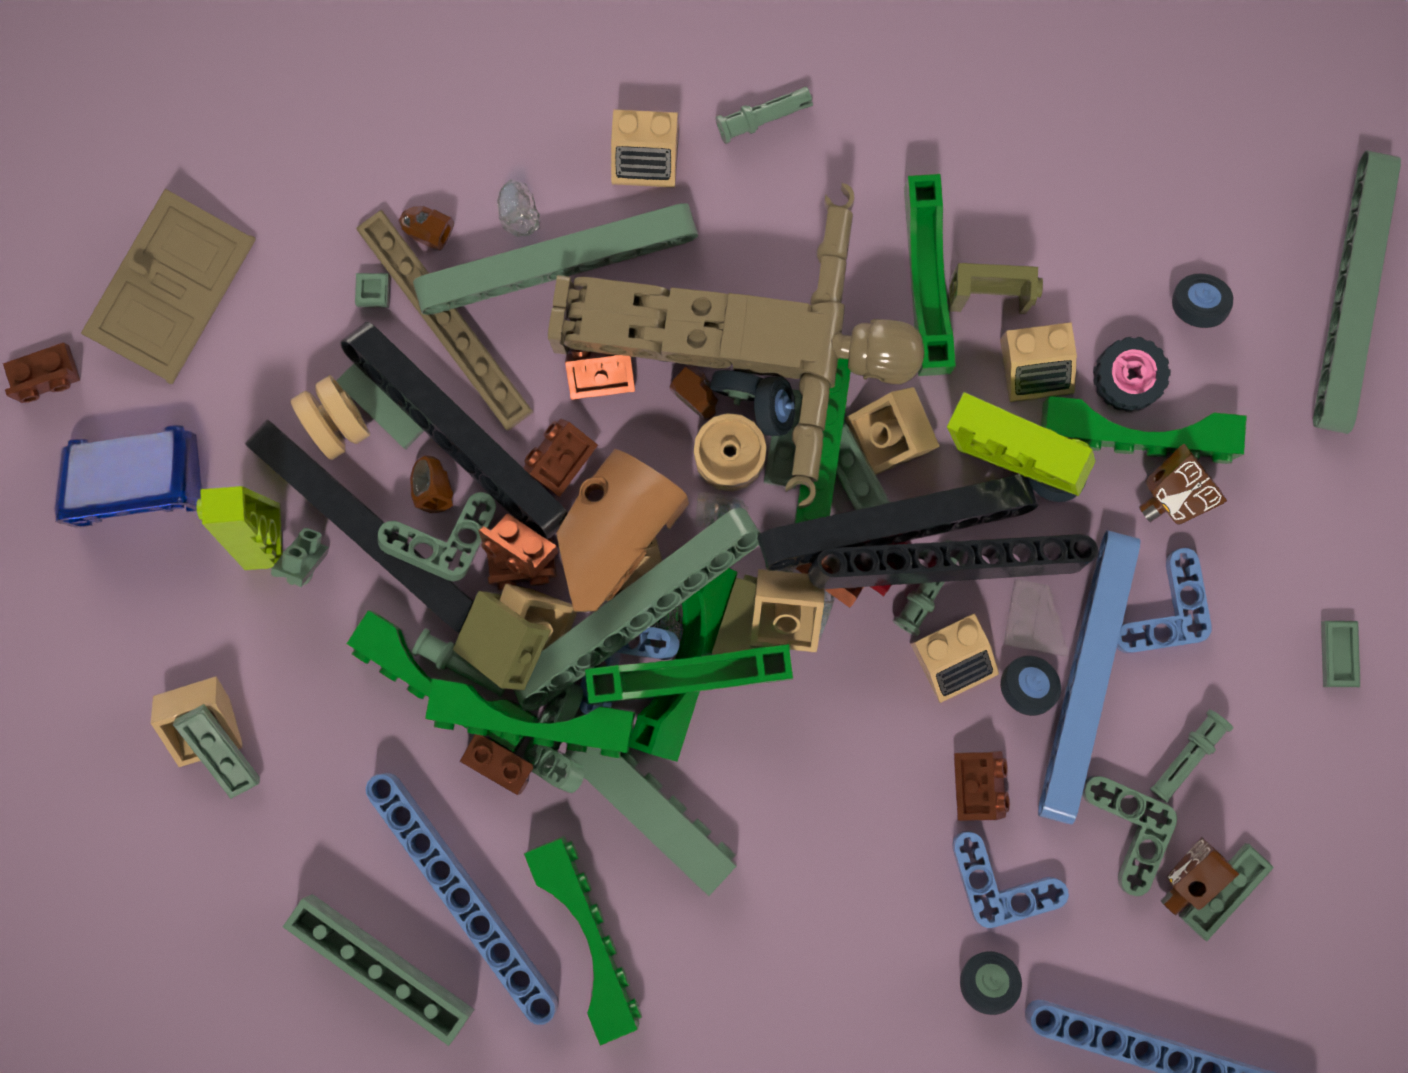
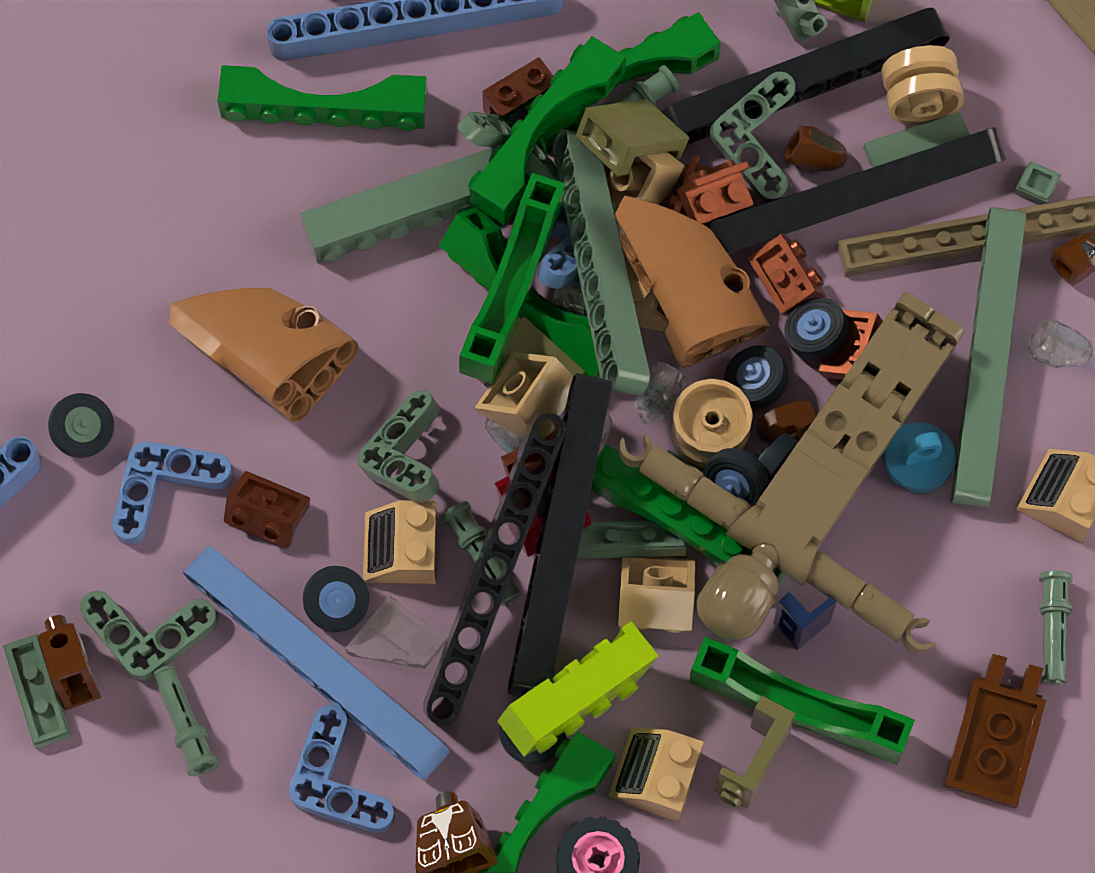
camera: 110 degrees right, 15 degrees down
(599, 408) = (816, 329): none -> black wheel
(666, 437) = (759, 375): none -> black wheel
(669, 269) = (920, 457): none -> dark azure tile
(841, 863) = (269, 343): none -> medium nougat panel
(865, 294) = (797, 623): none -> dark blue panel
(873, 120) = (997, 736): none -> reddish brown tile
(881, 707) = (421, 411): none -> sand green beam

